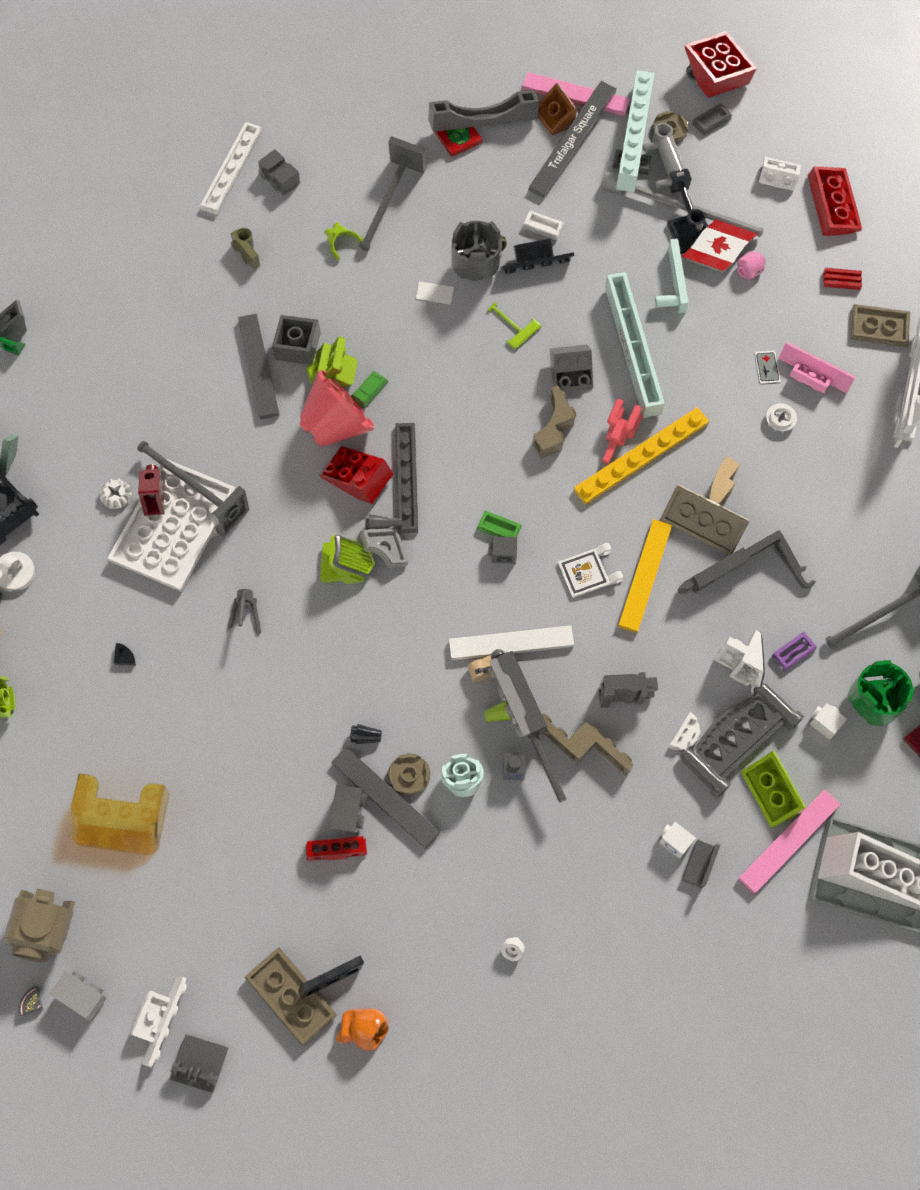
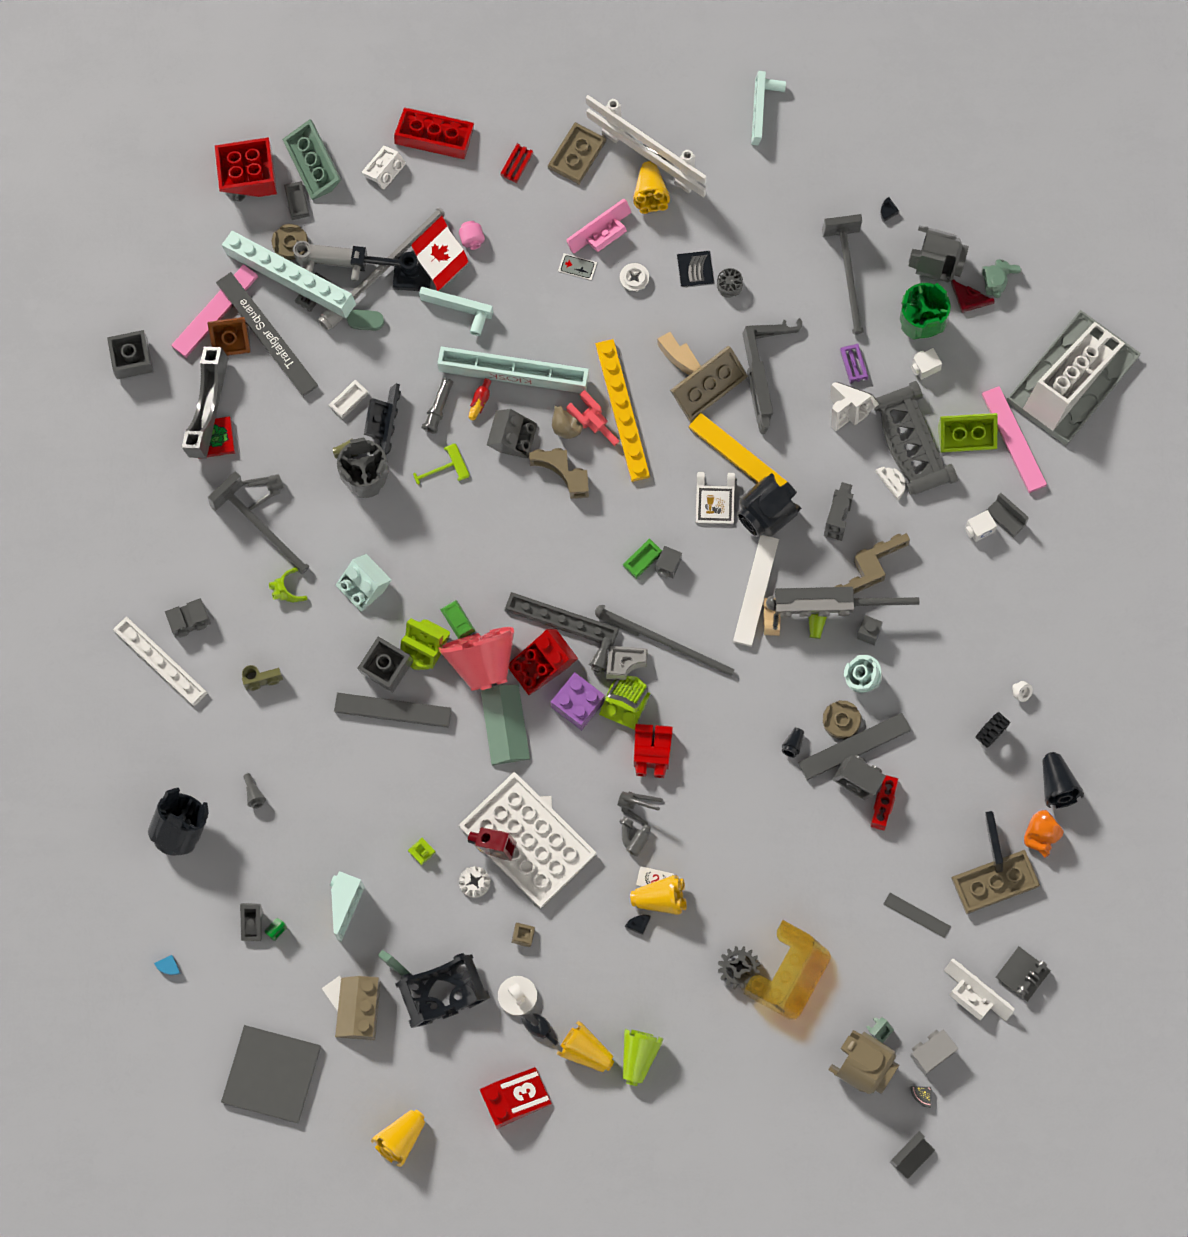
camera: 60 degrees left, 5 degrees up
(49, 386) = (345, 896): none -> light aqua slope
(76, 554) = (523, 934): none -> dark tan tile
(77, 223) = (174, 821): none -> black piece
(86, 932) = (881, 1029): none -> sand green tile
(105, 754) = (731, 966): none -> dark grey gear
(129, 438) = (421, 851): none -> lime tile
(132, 282) = (254, 796): none -> dark grey cone
(156, 665) = (661, 896): none -> yellow cone
(176, 655) = (649, 875): none -> white sticker
(203, 623) = (638, 841): none -> dark grey plant
(227, 927) = (917, 915): none -> dark grey sticker
(228, 511) = (538, 783): dark grey tile -> none
(282, 466) = (505, 724): none -> sand green slope
(305, 603) = (652, 756): none -> red hips
(327, 516) = (578, 701): none -> medium lavender brick
(371, 296) = (363, 582): none -> light aqua slope
(425, 1024) = (1059, 782): none -> black cone
(427, 509) = (602, 613): none -> dark grey bar
(434, 193) = (272, 482): none -> dark grey plant
(434, 292) = (379, 524): white sticker -> none
(455, 931) = (992, 729): none -> black tyre
(502, 42) = (130, 354): none -> dark grey brick
(561, 297) = (435, 413): none -> dark grey pin
(594, 329) = (480, 398): none -> red piece
(596, 616) = (767, 507): none -> black piece
(600, 406) = (565, 424): none -> dark tan hair
(625, 211) = (365, 320): none -> sand green tile
(754, 115) = (312, 160): none -> sand green slope
(819, 470) = (695, 268): none -> black sticker
(819, 504) = (730, 282): none -> dark grey wheel
(875, 397) = (650, 190): none -> yellow cone

